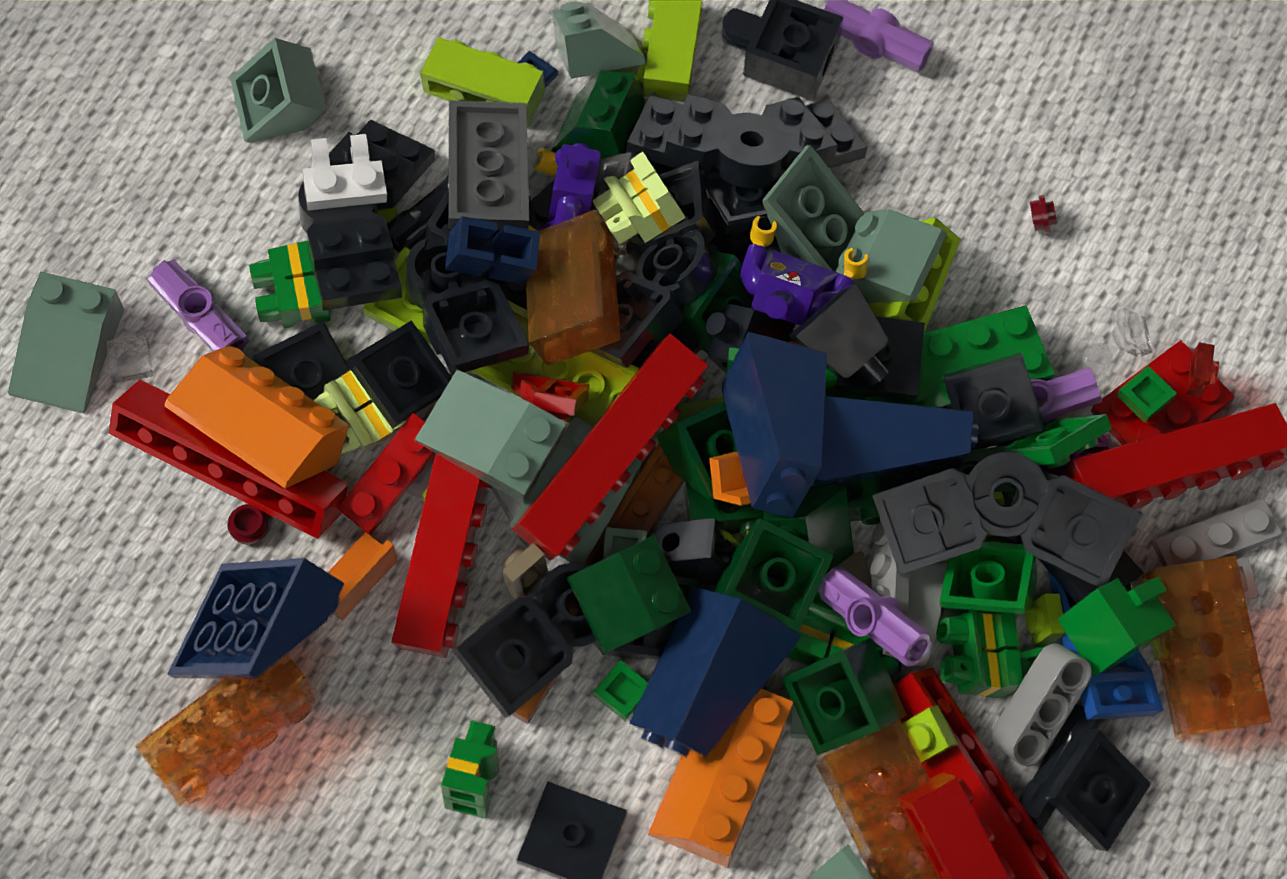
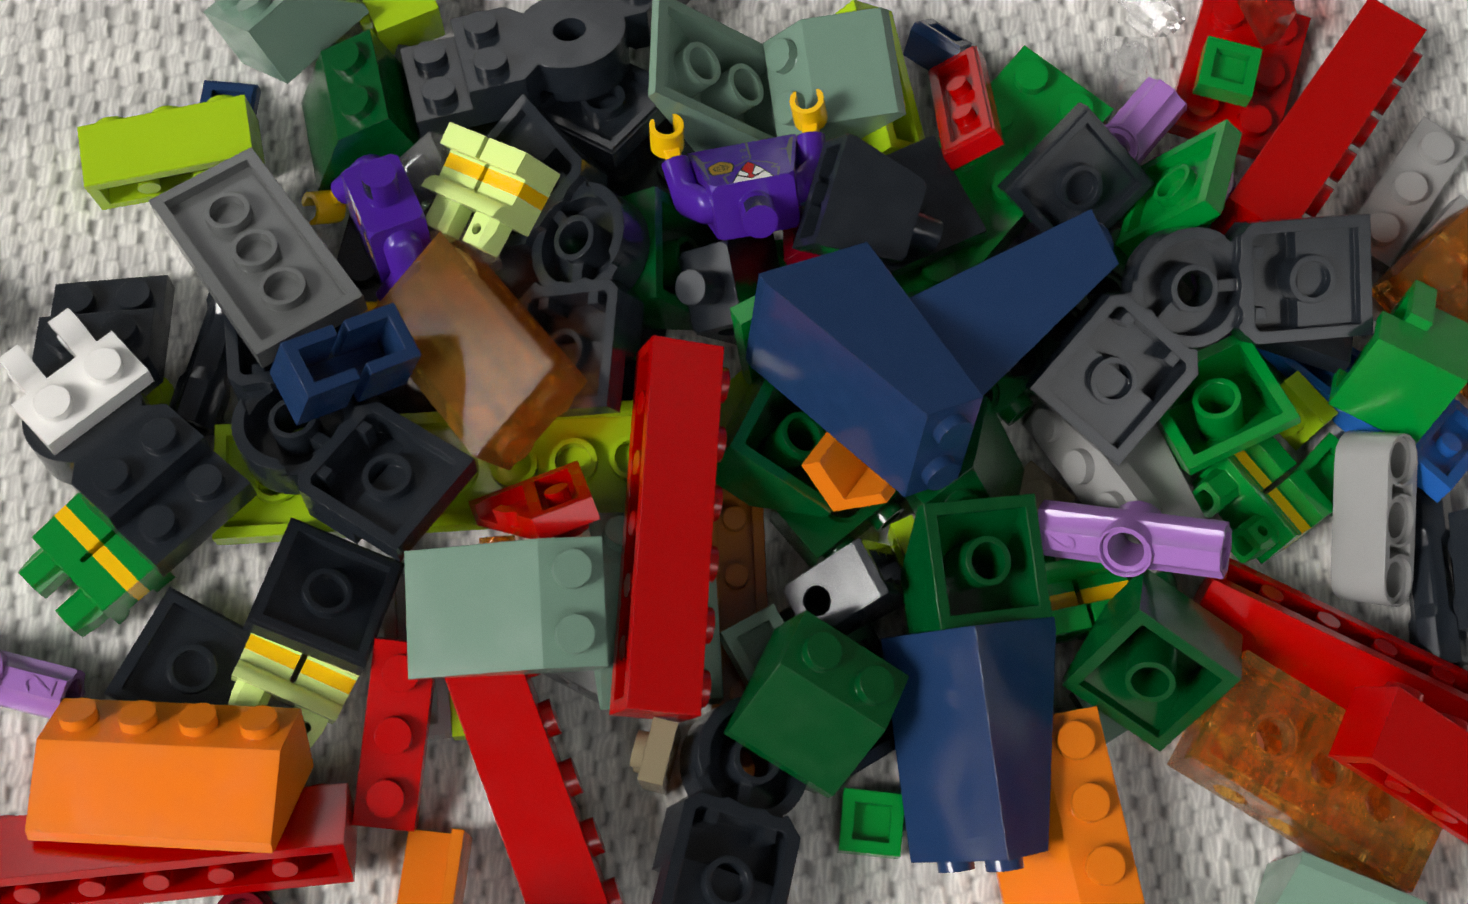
camera: 35 degrees left, 5 degrees up
(929, 734) = (1286, 640): lime plate -> none
(959, 319) = (965, 108): none -> red tile
(981, 278) = (933, 43): none -> dark blue slope

